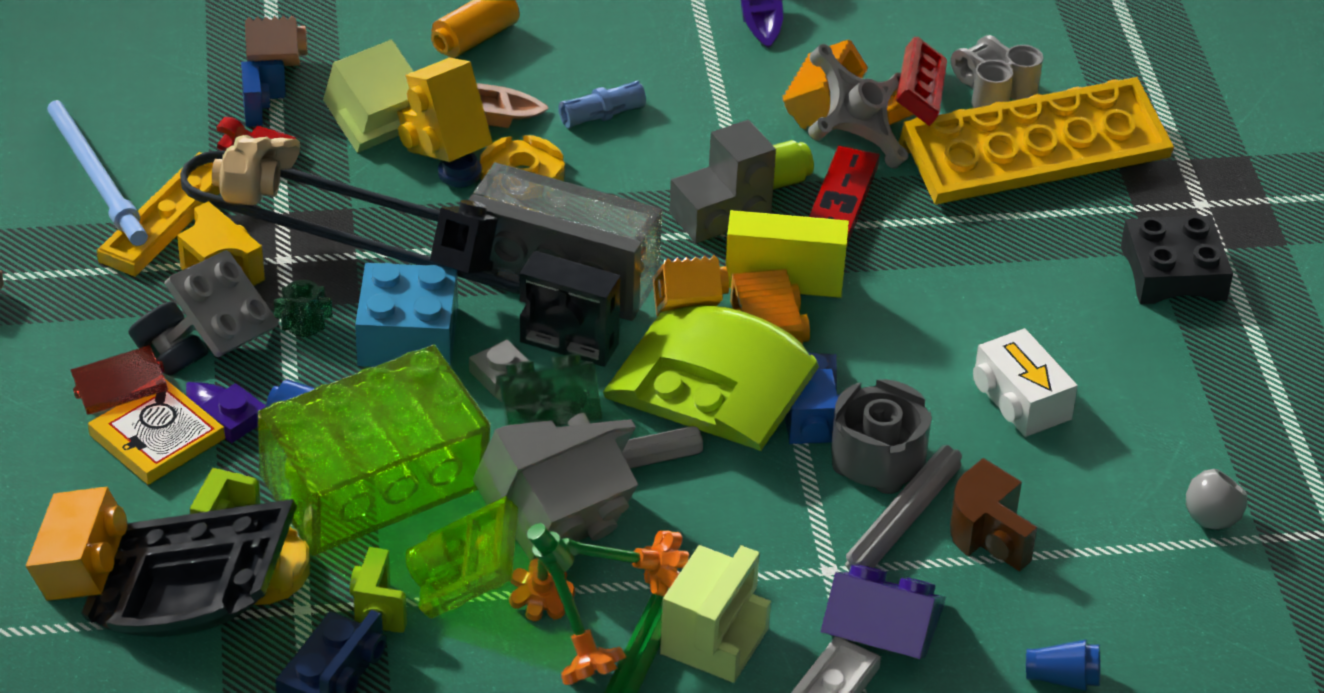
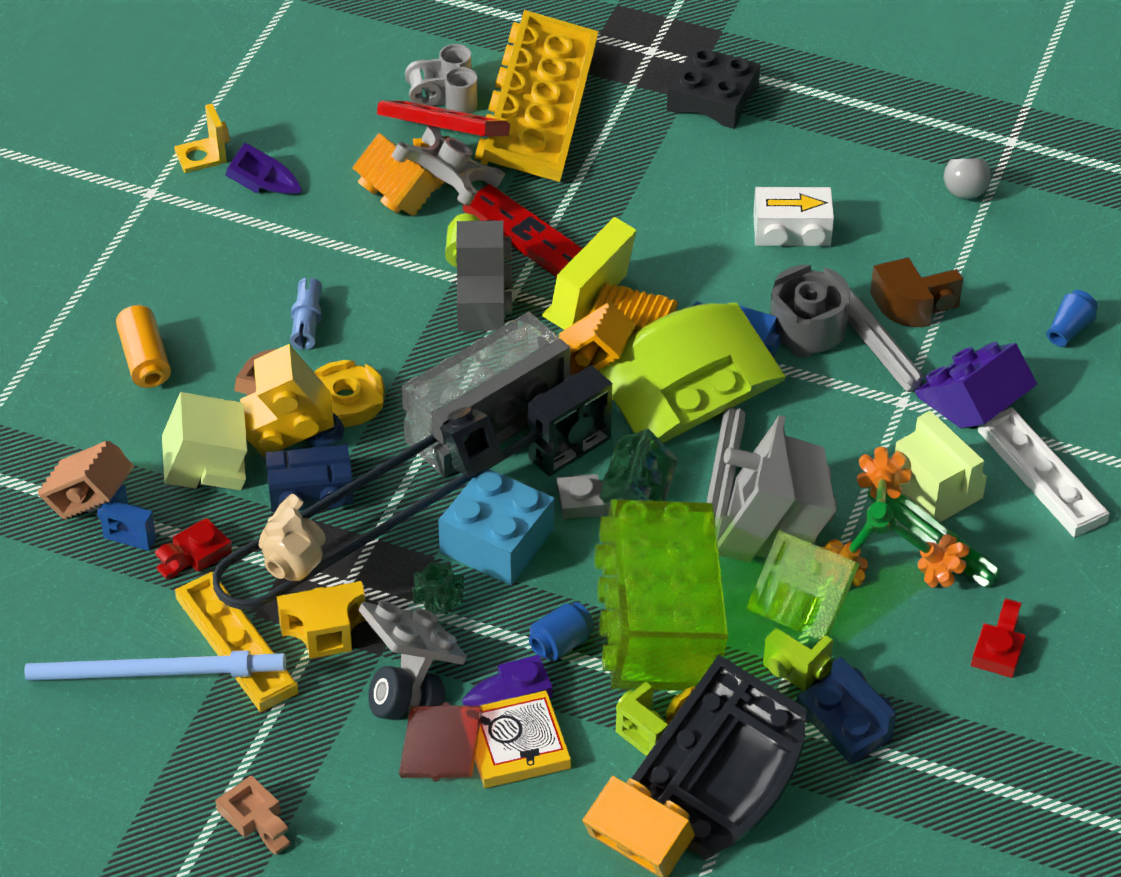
camera: 60 degrees left, 5 degrees up
(384, 169) = (309, 475): none -> dark blue brick

